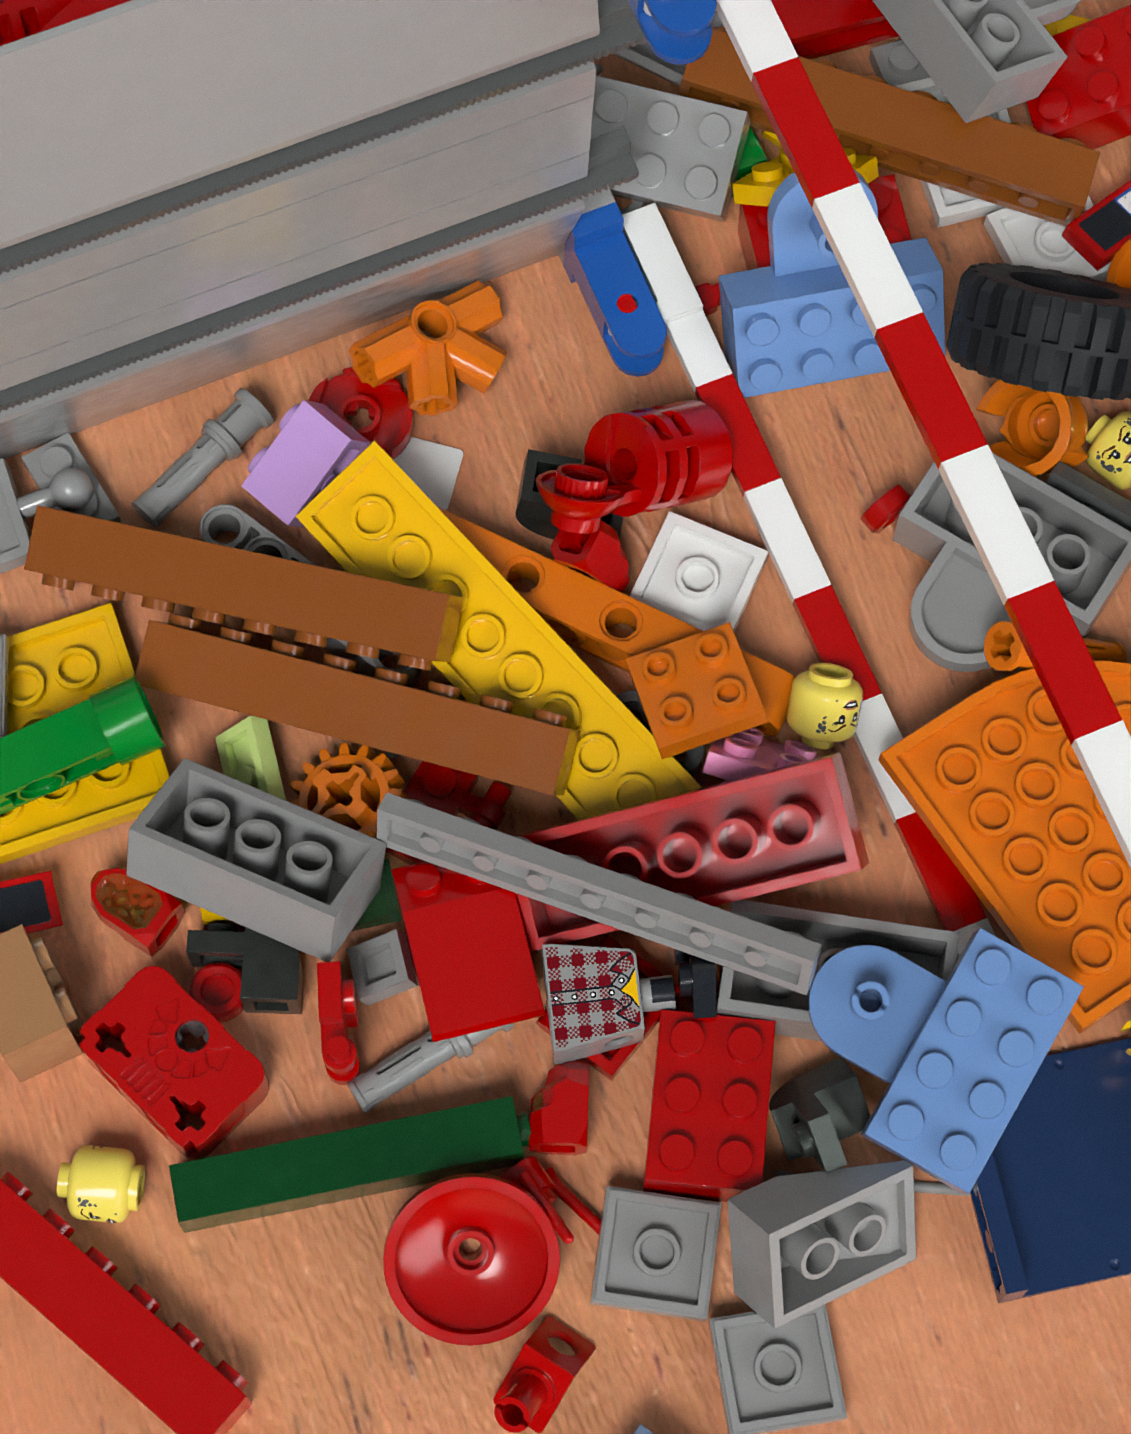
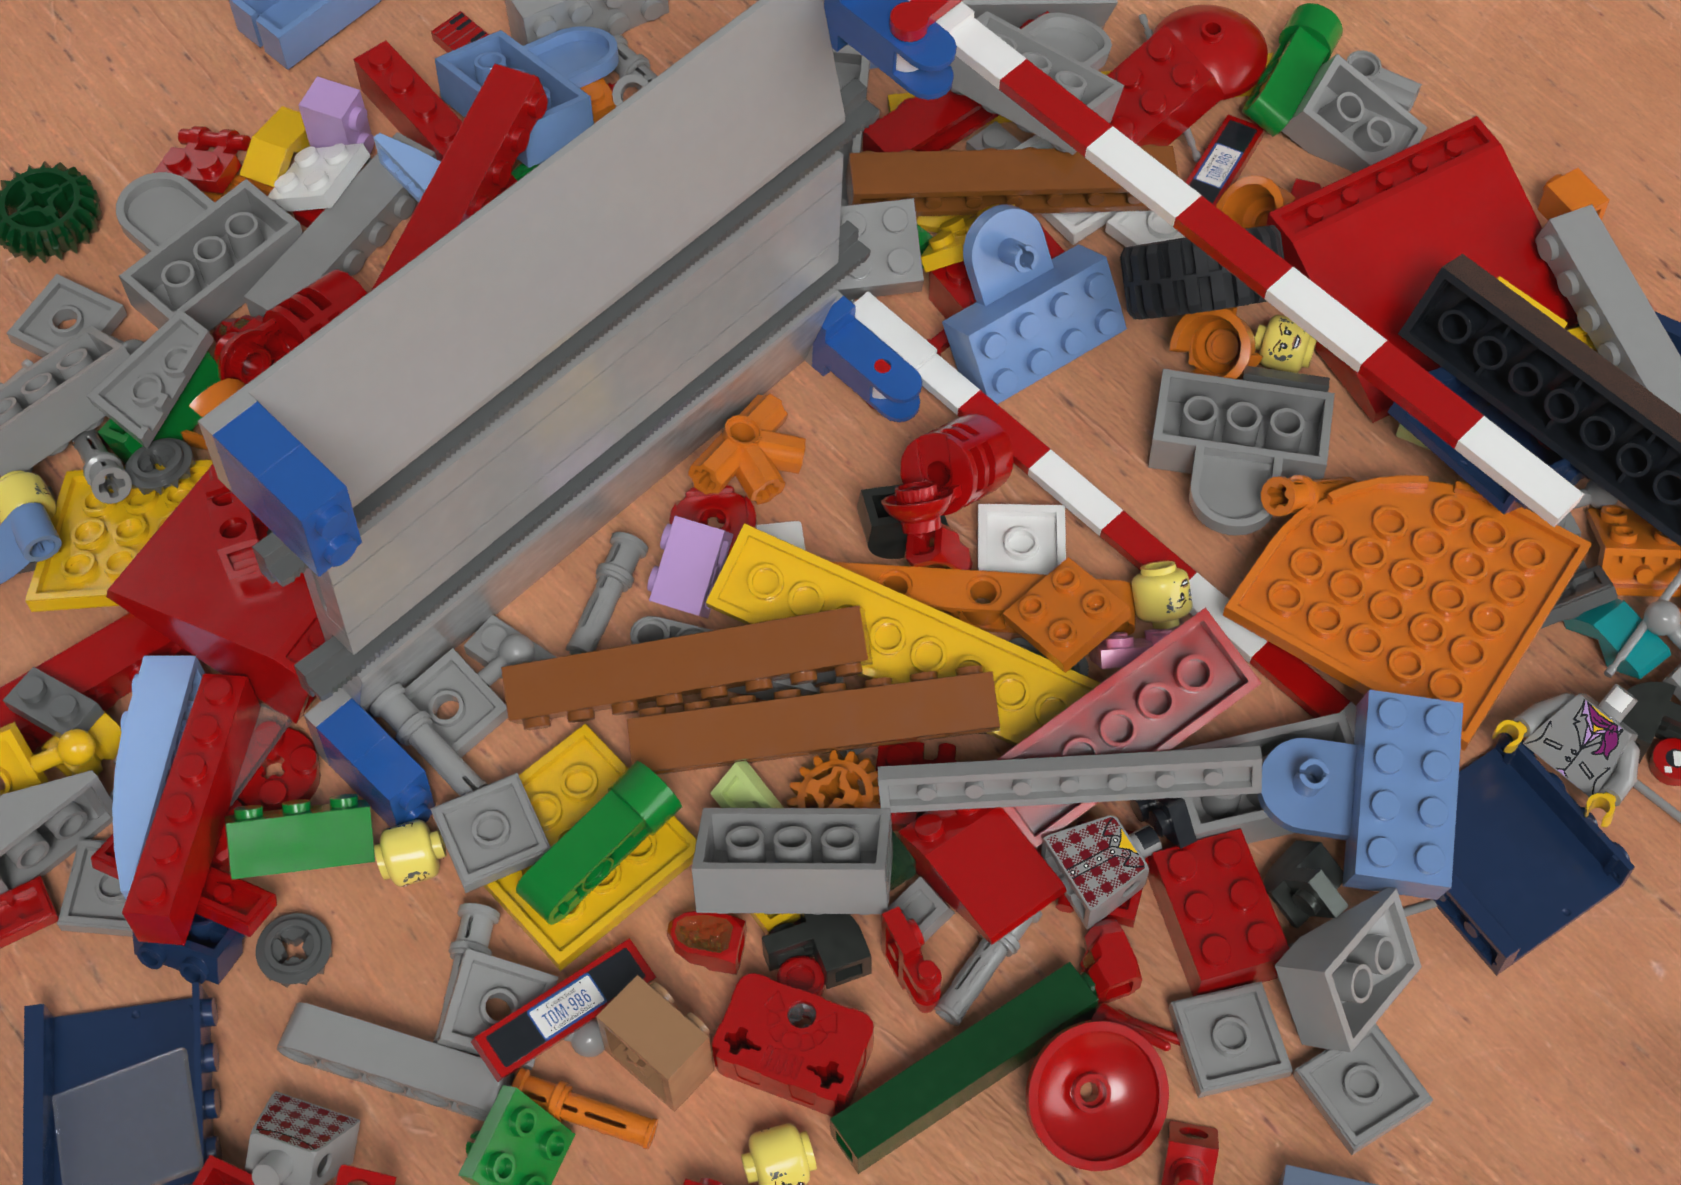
camera: 20 degrees left, 10 degrees down
(886, 509) = (1135, 445): red tile -> none

